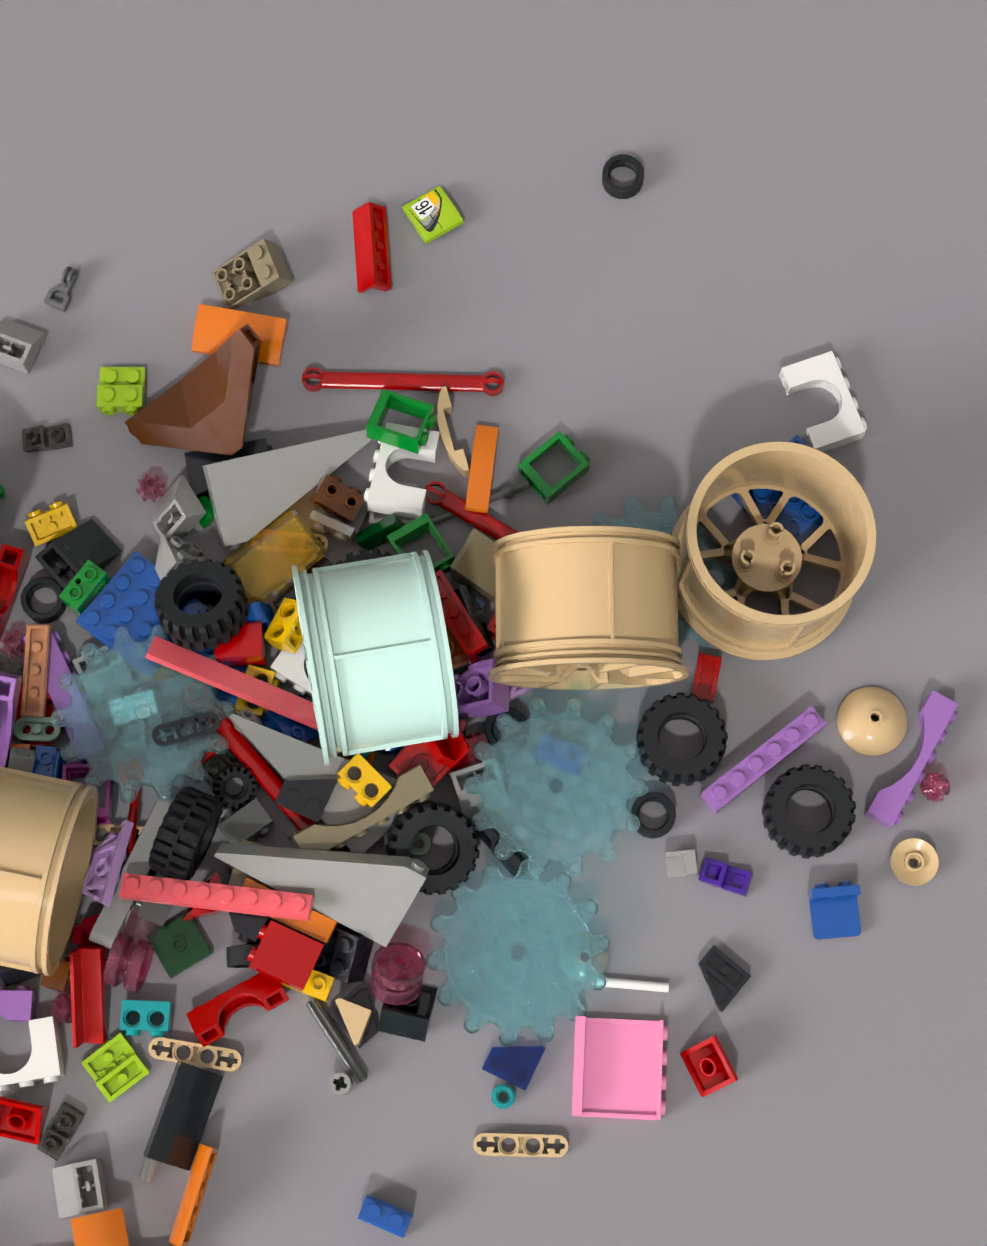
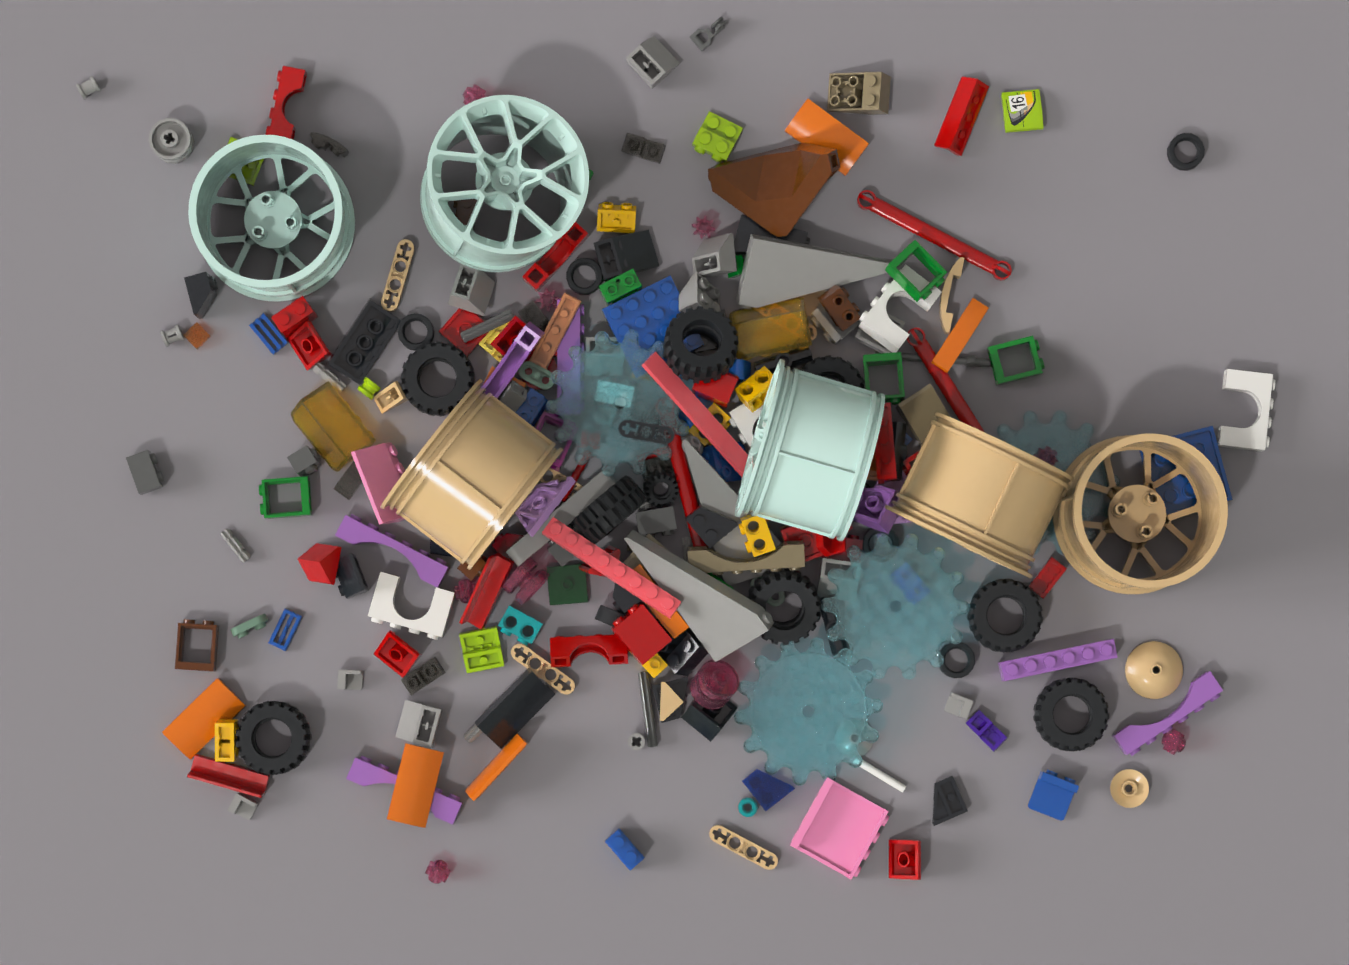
camera: 25 degrees right, 10 degrees up
(377, 533) = (858, 347): dark green slope -> none

